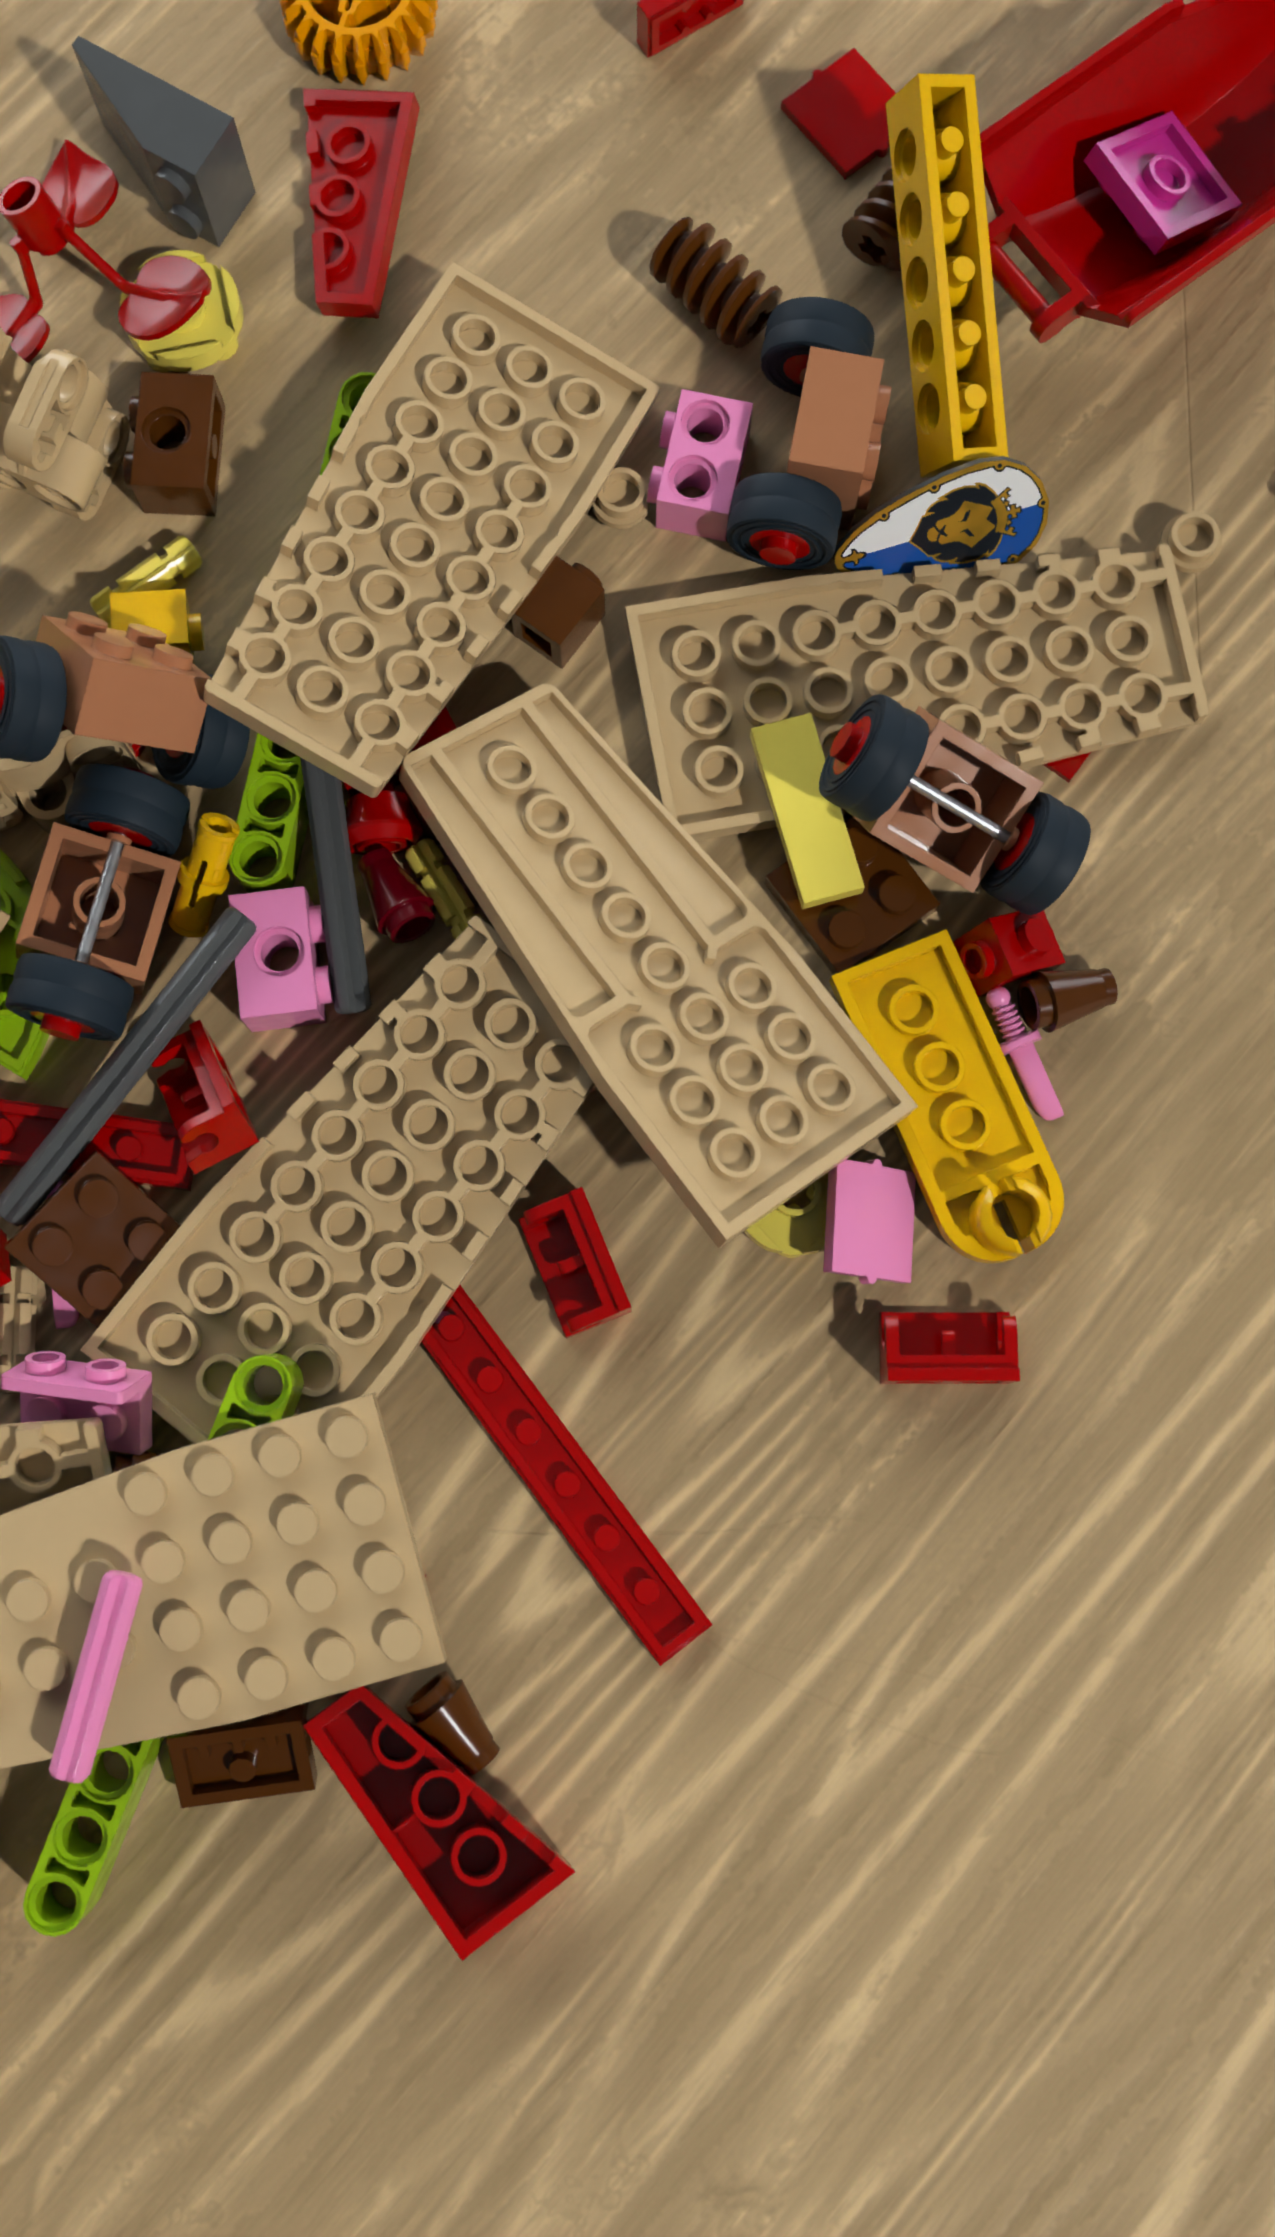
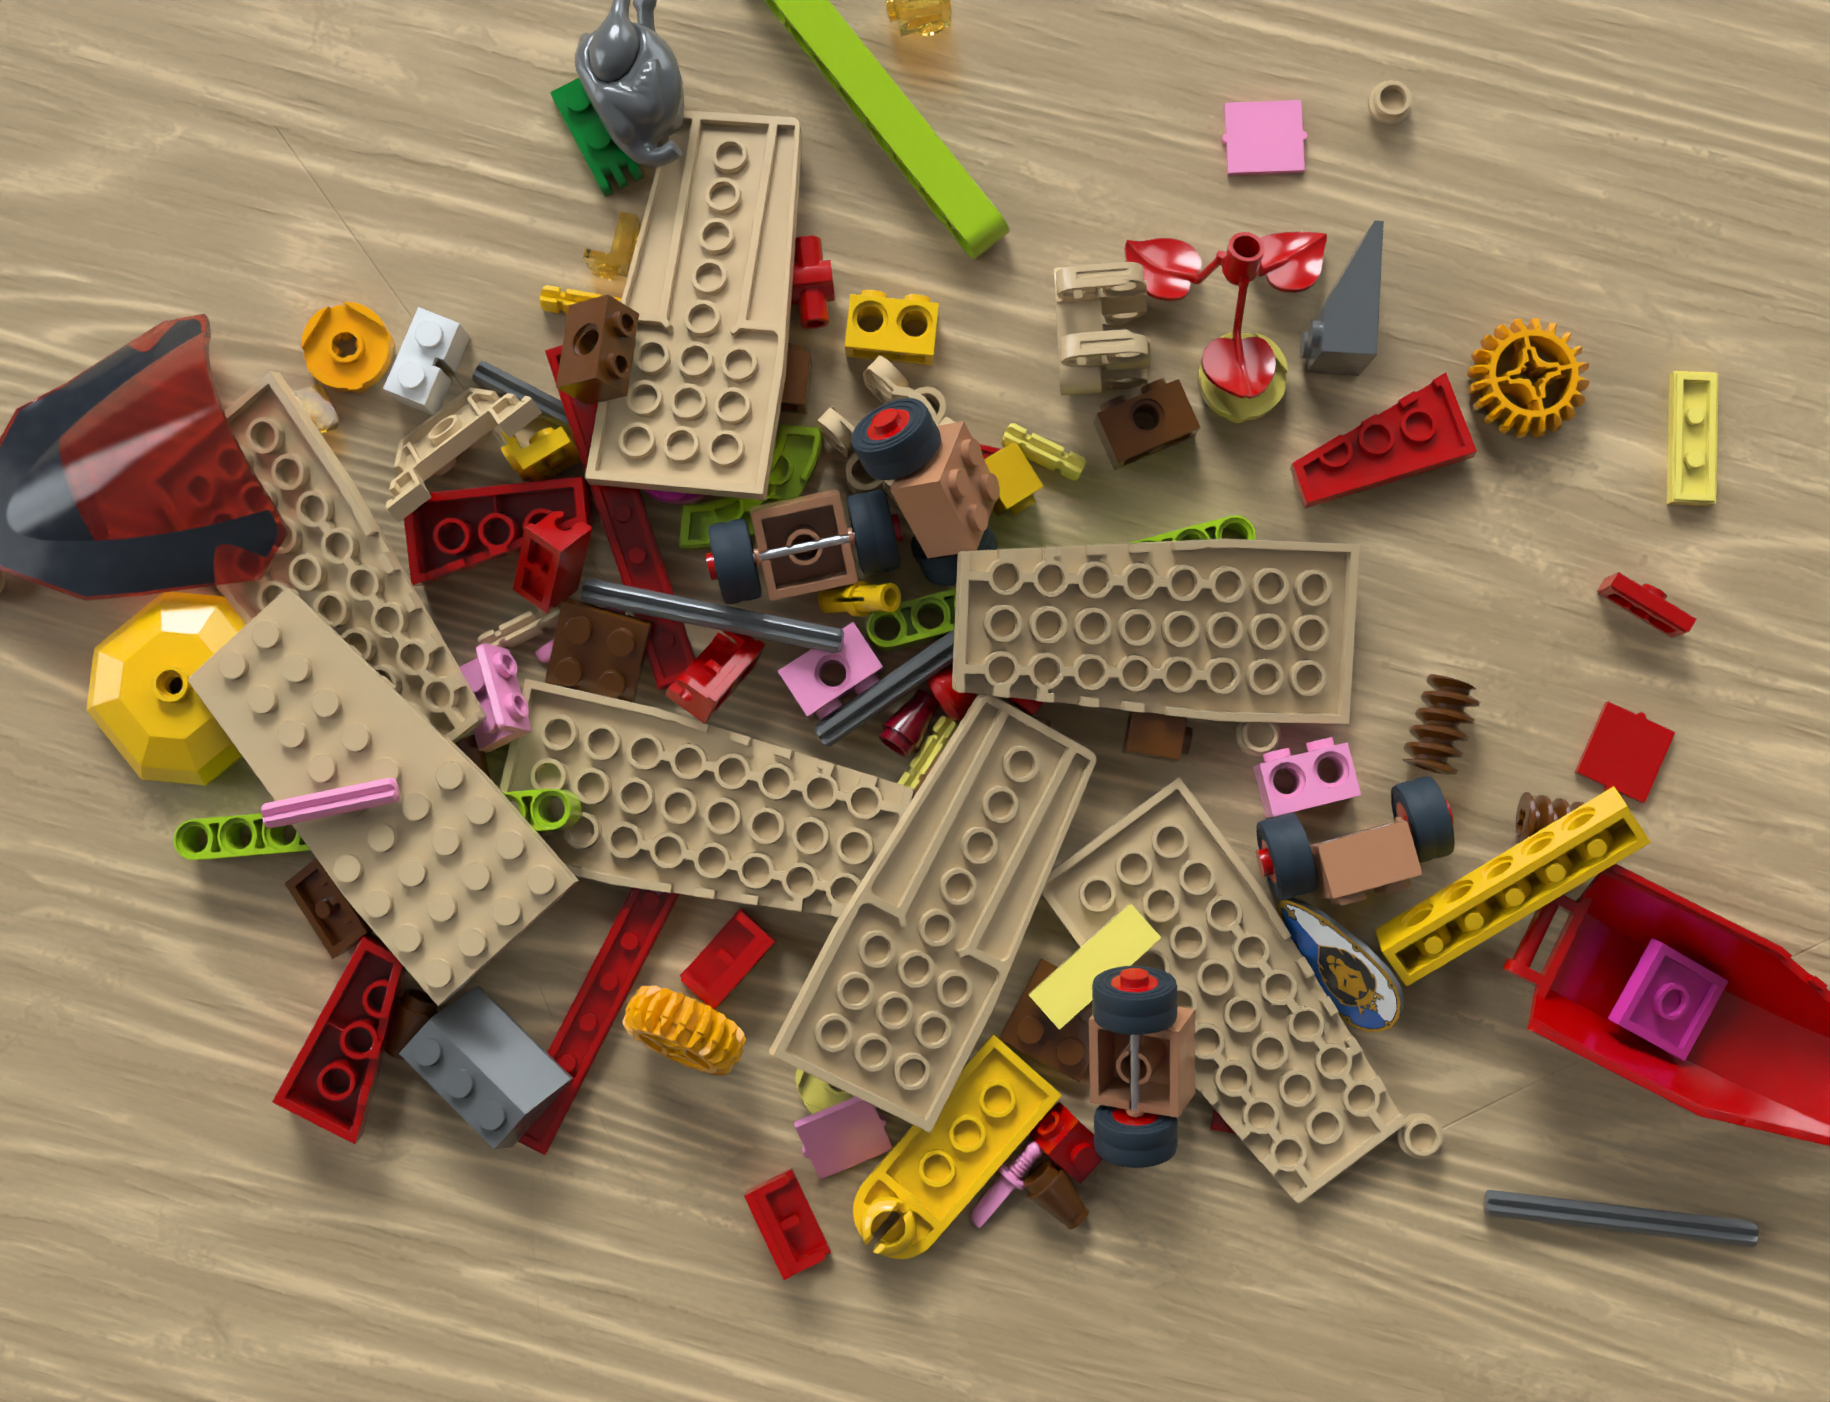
camera: 65 degrees right, 5 degrees up
(560, 1644) = (486, 1068): none -> dark grey slope
(638, 1353) = (684, 1030): none -> light orange gear

